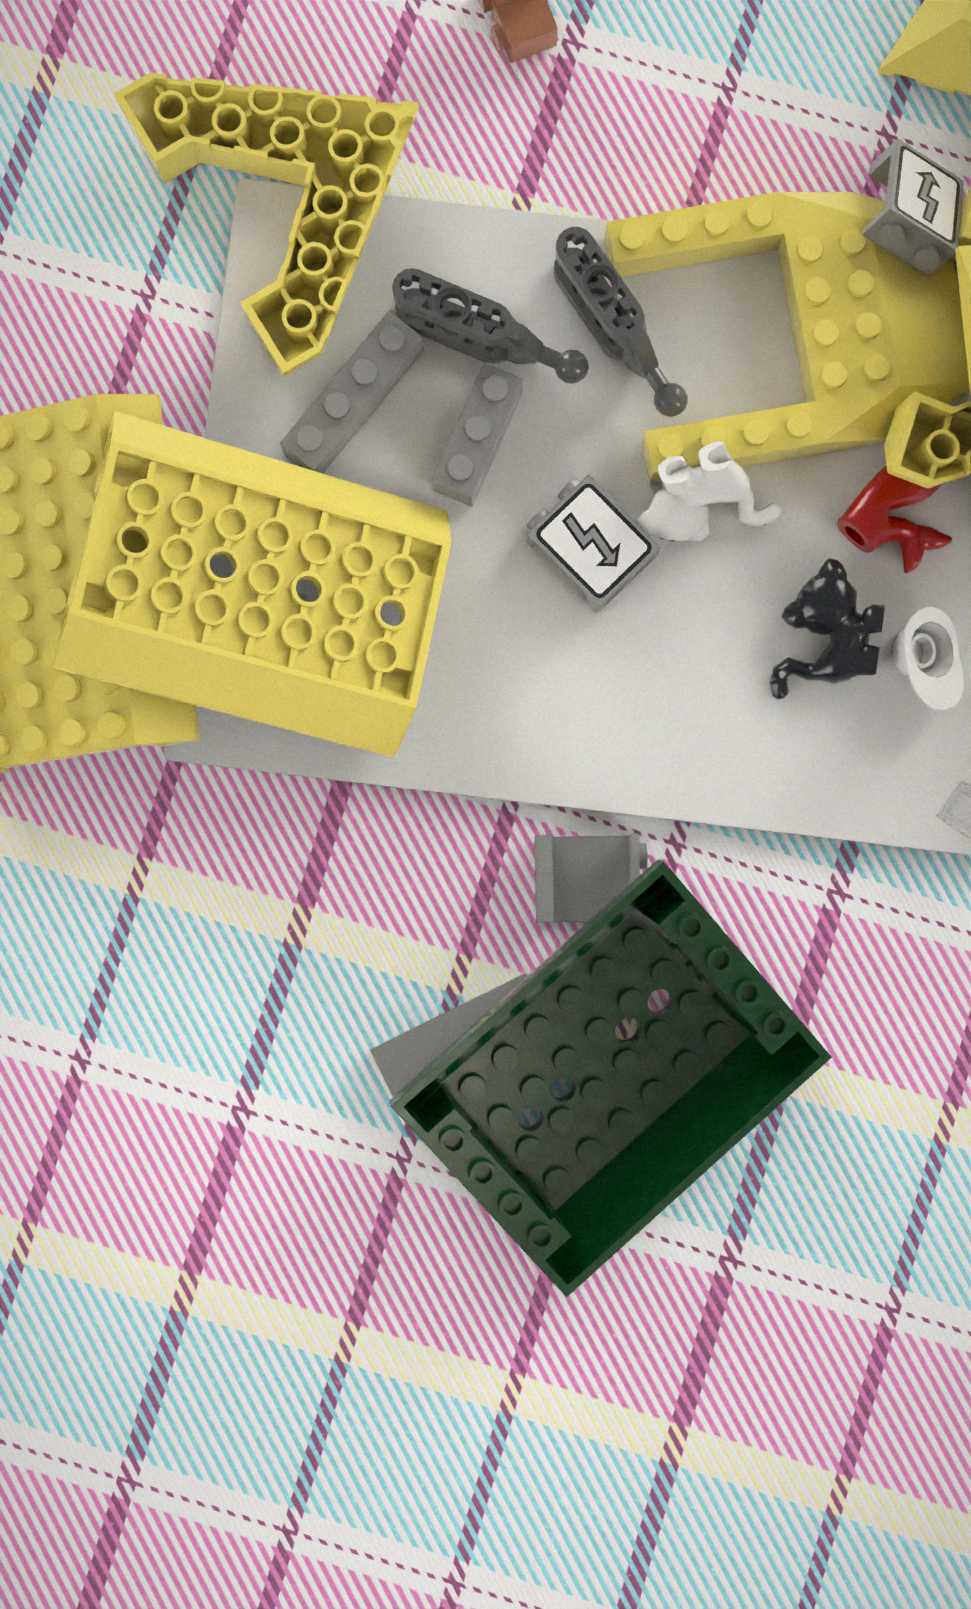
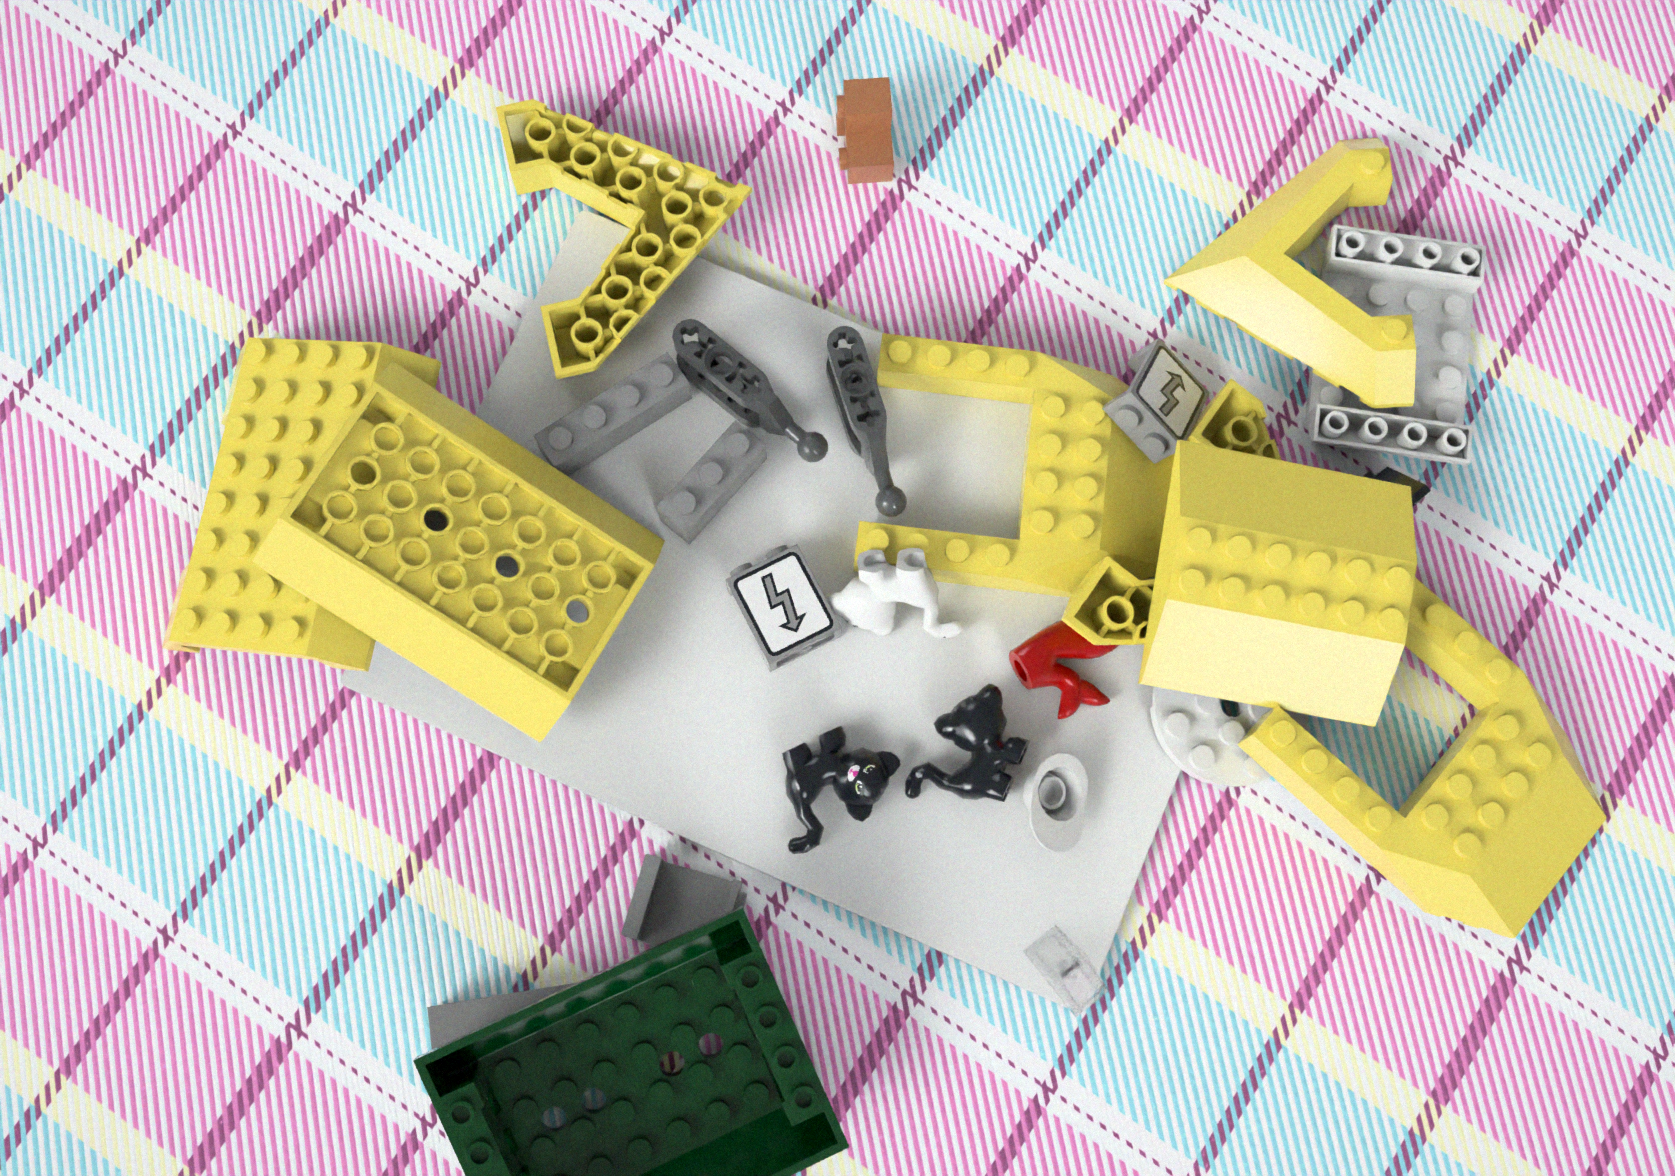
camera: 10 degrees right, 10 degrees down
(720, 694) = (856, 778): none -> black animal

